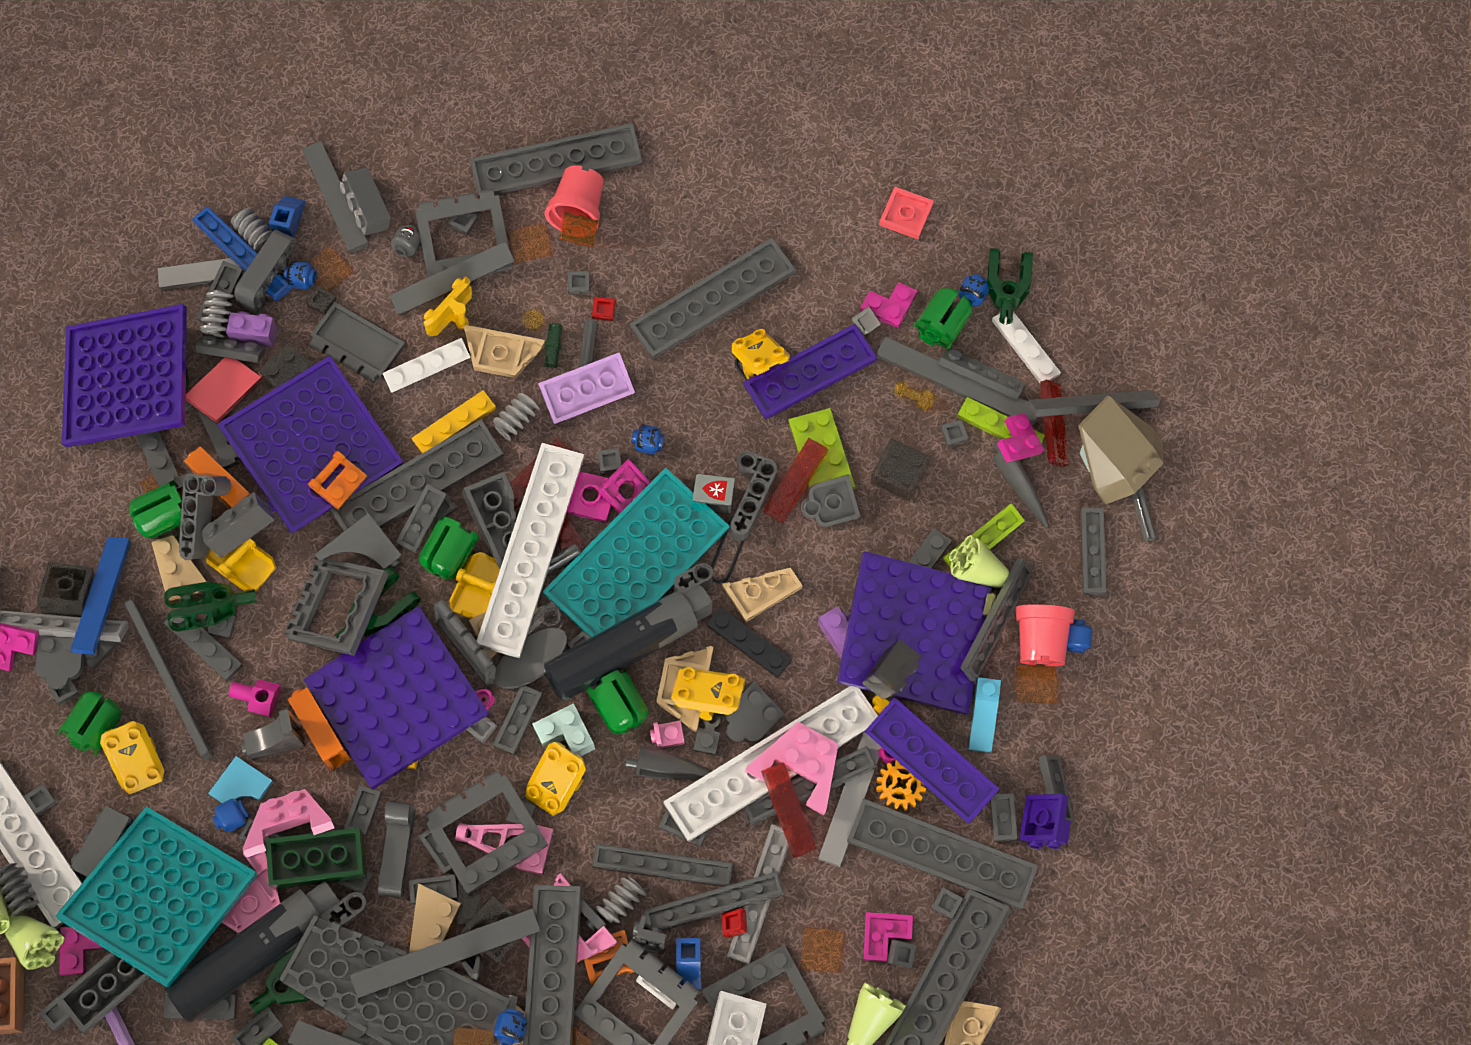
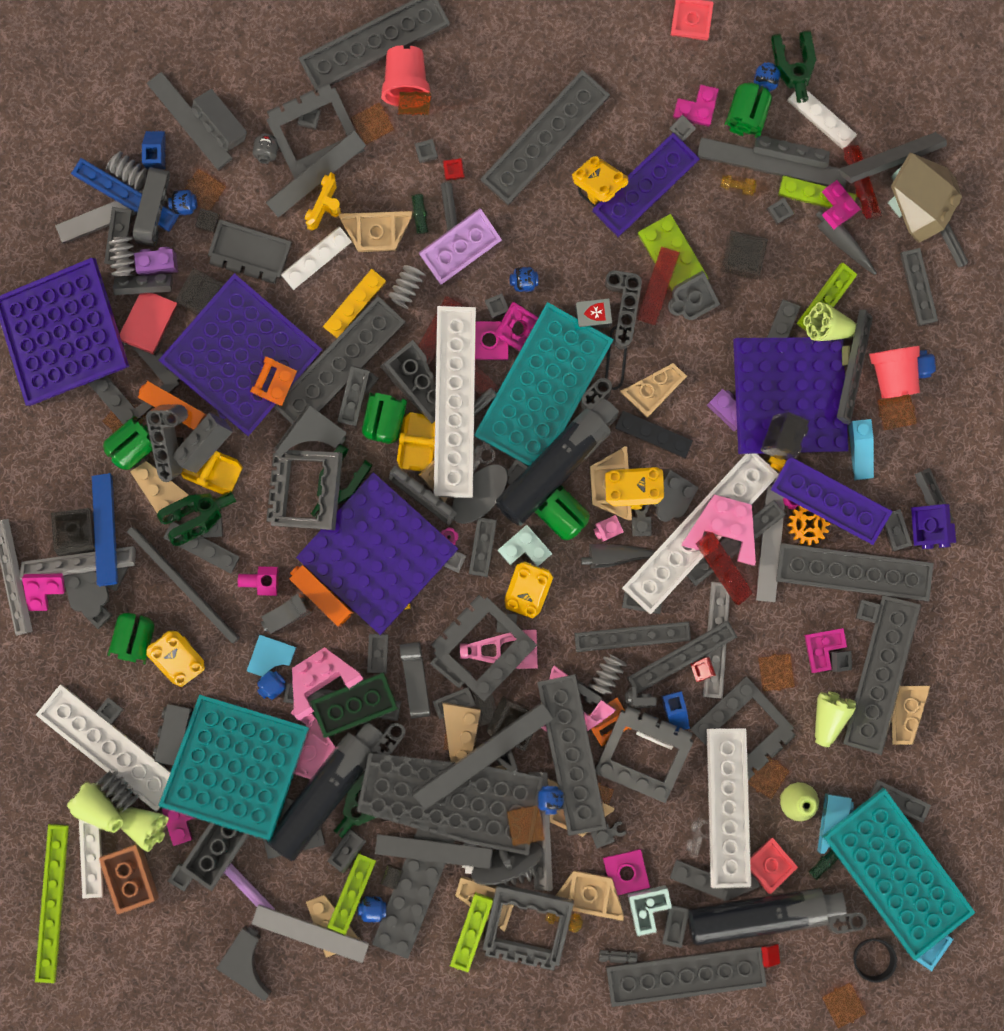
camera: 20 degrees left, 15 degrees up
(532, 319) = (395, 194): clear yellow piece -> none

